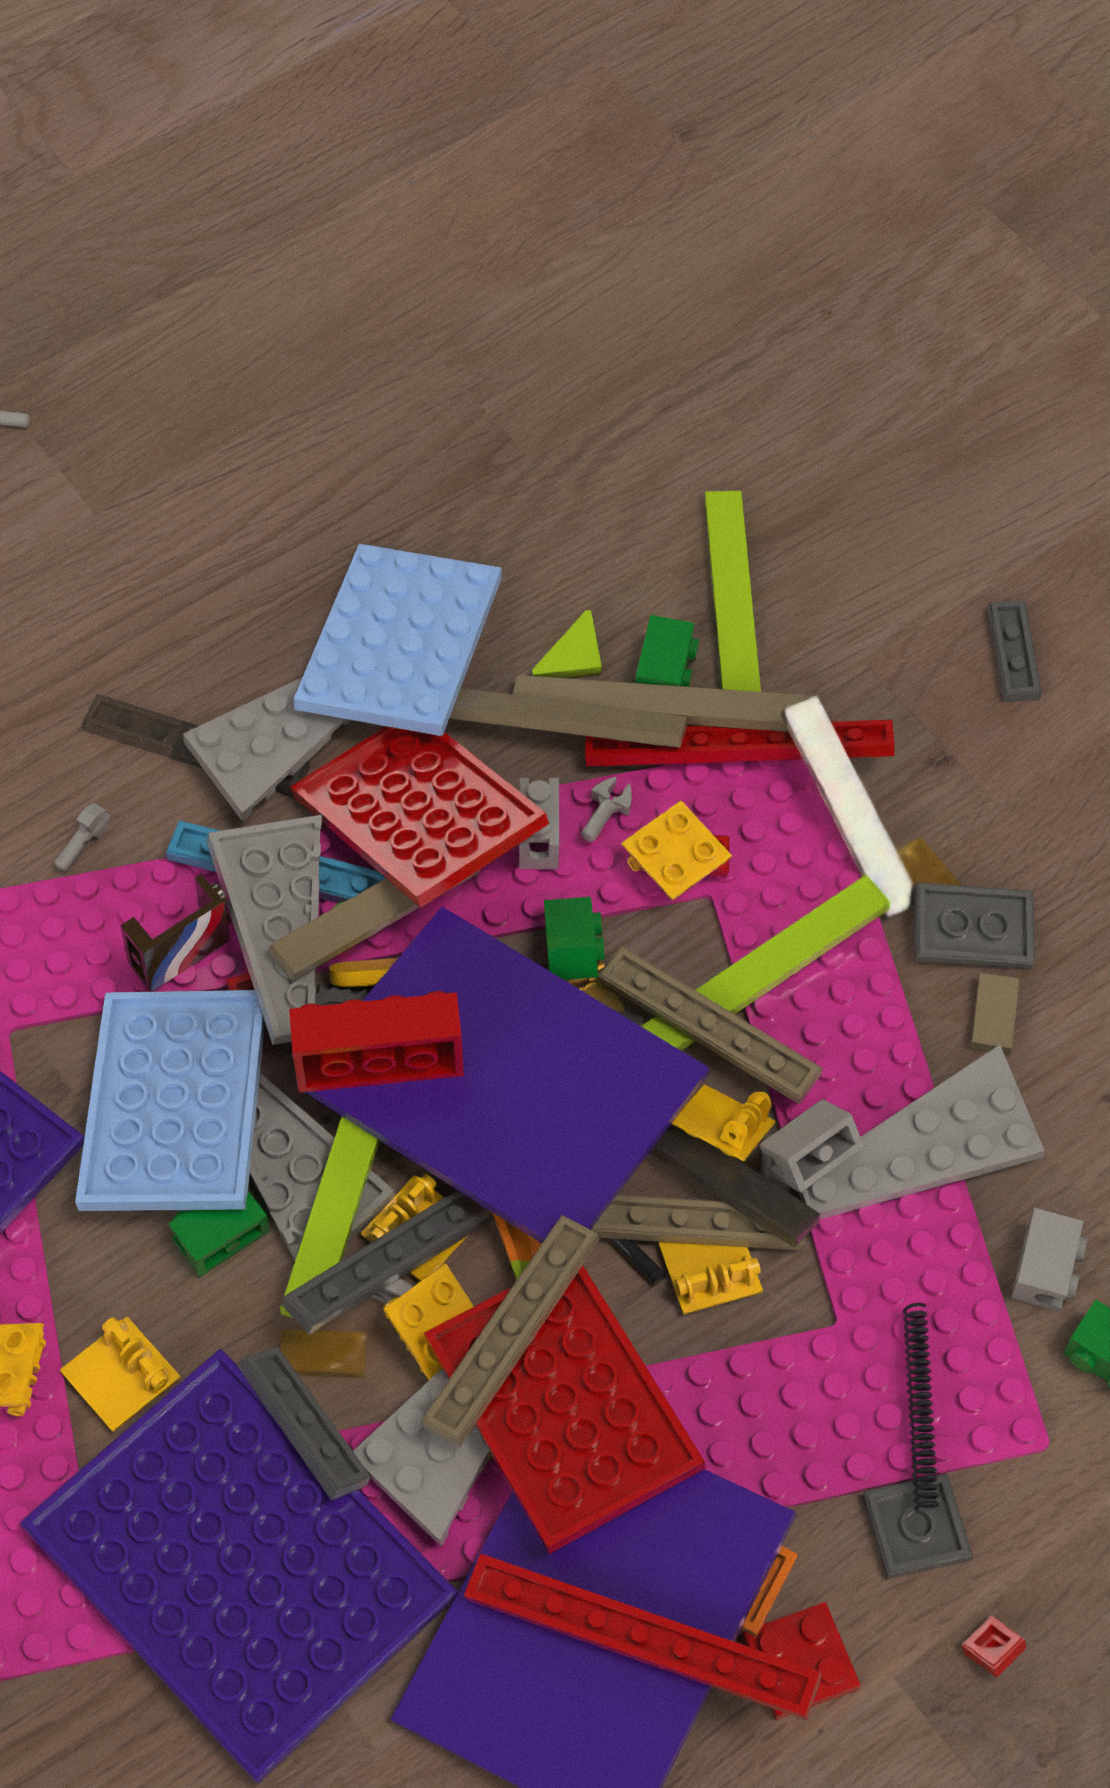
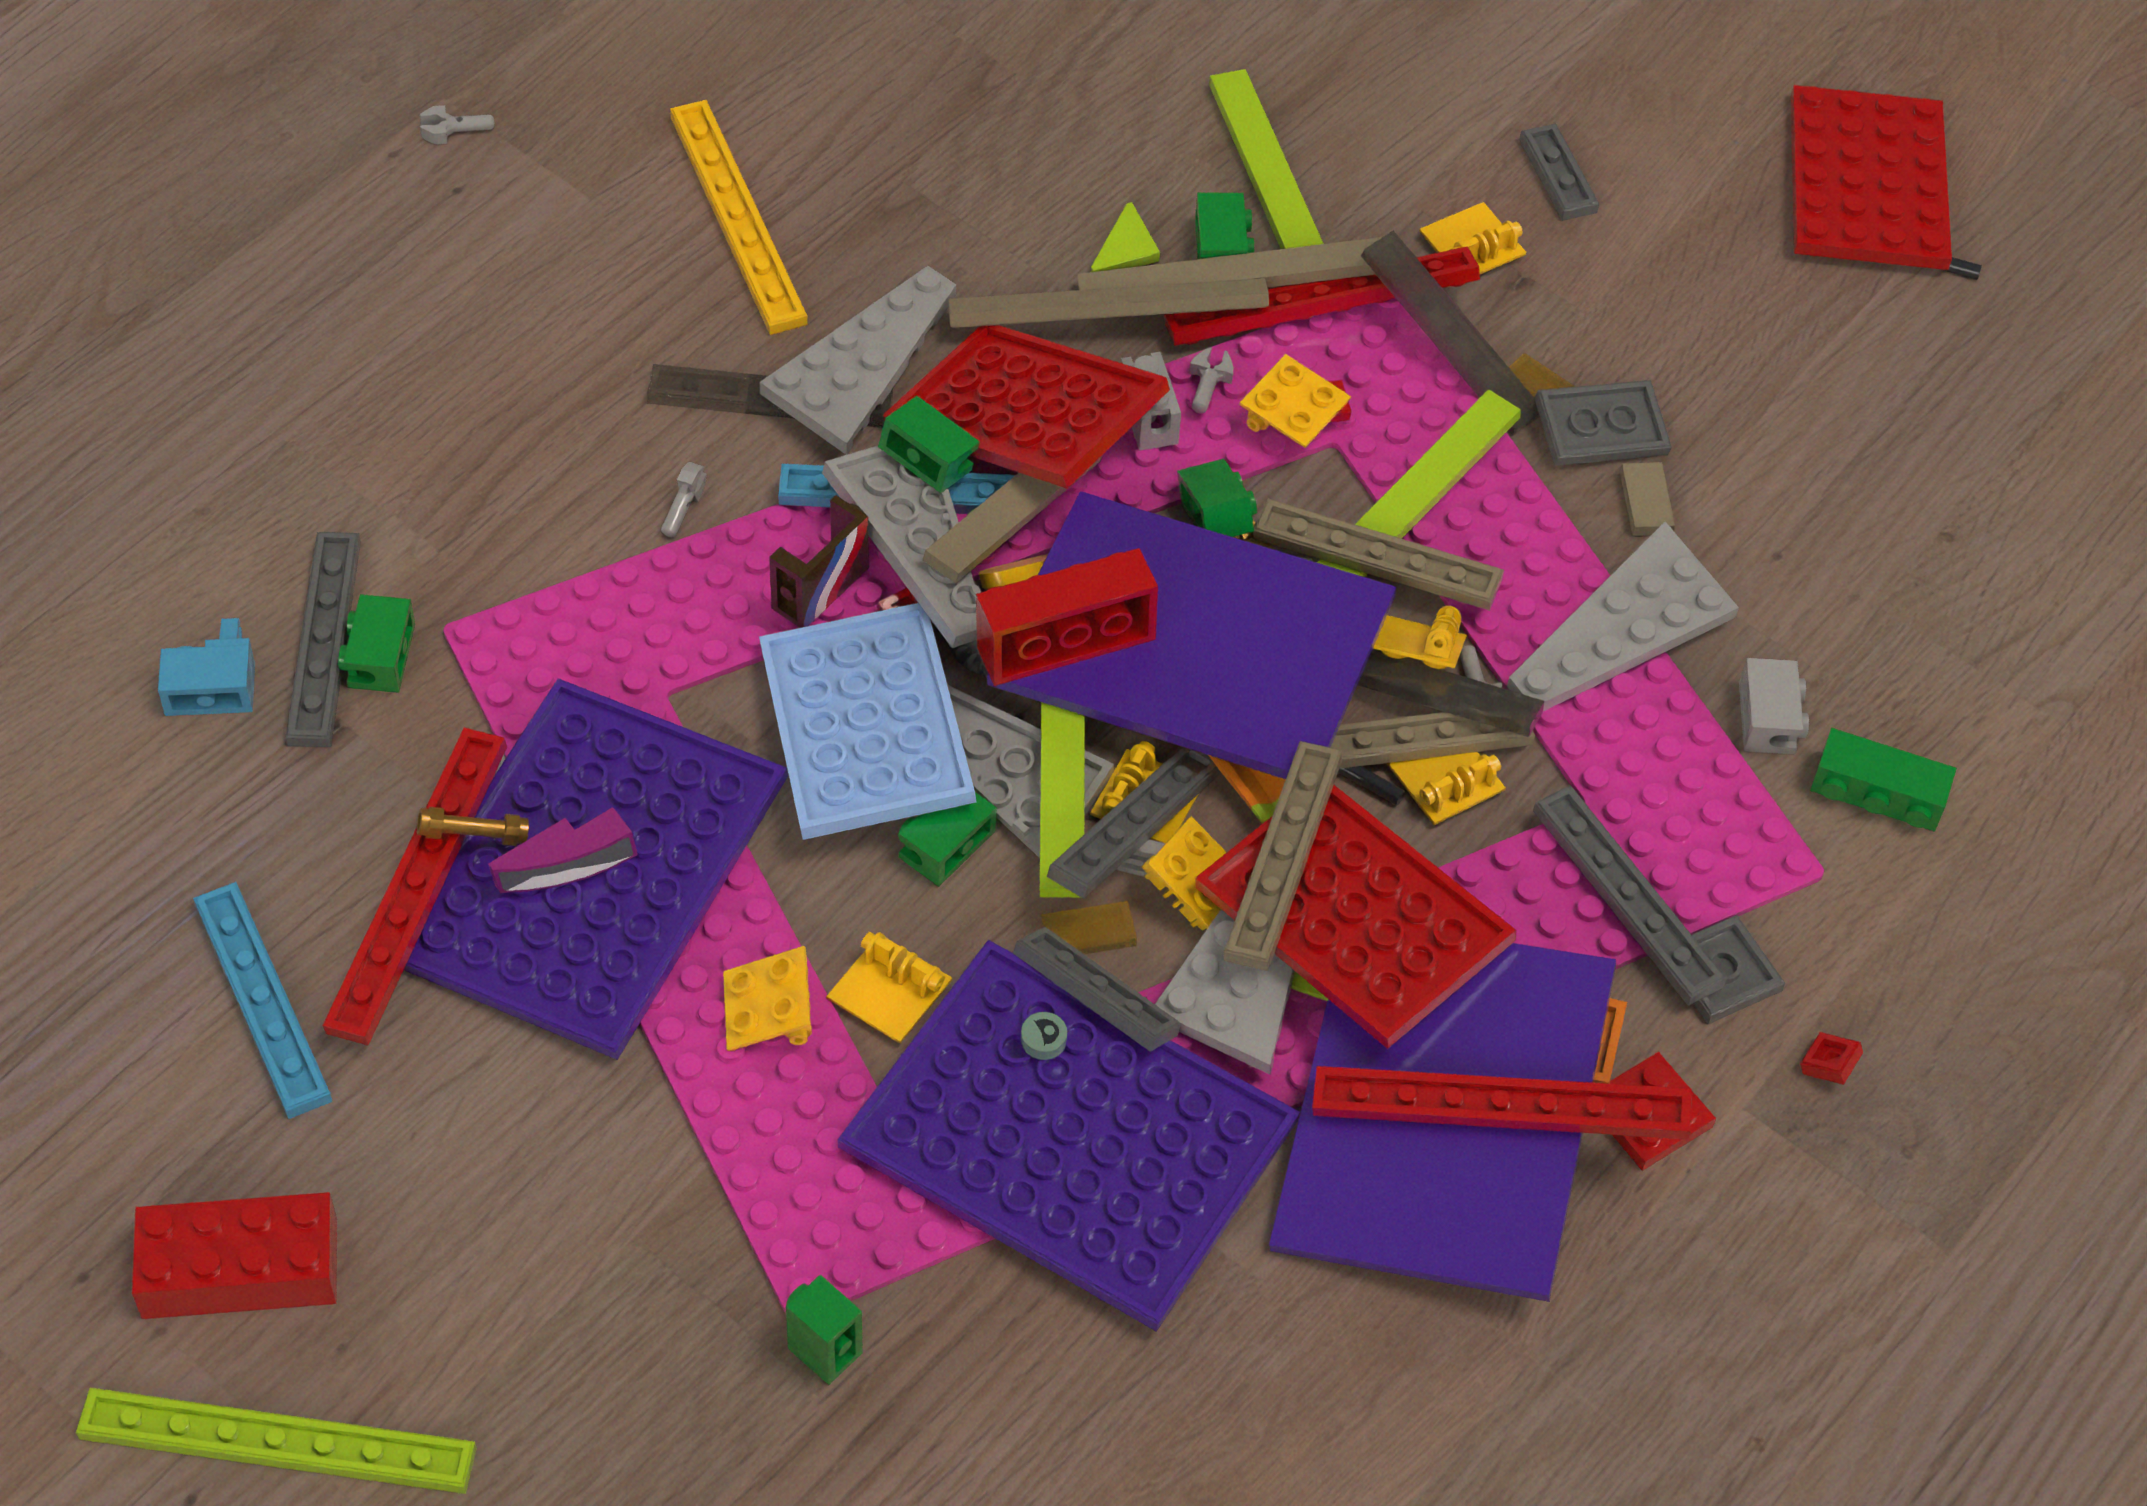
camera: 15 degrees left, 5 degrees down
(222, 558) = (738, 217): none -> yellow tile
(238, 1461) = (1044, 1035): none -> sand green tile
(310, 833) = (928, 444): none -> green brick
(399, 639) = (950, 258): light blue plate -> none
(812, 1145) = (1516, 641): light grey brick -> none
(846, 1432) = (1629, 895): none -> dark grey tile
(912, 705) = (1482, 232): none -> yellow hinge
(922, 1371) = (1693, 859): black piece -> none

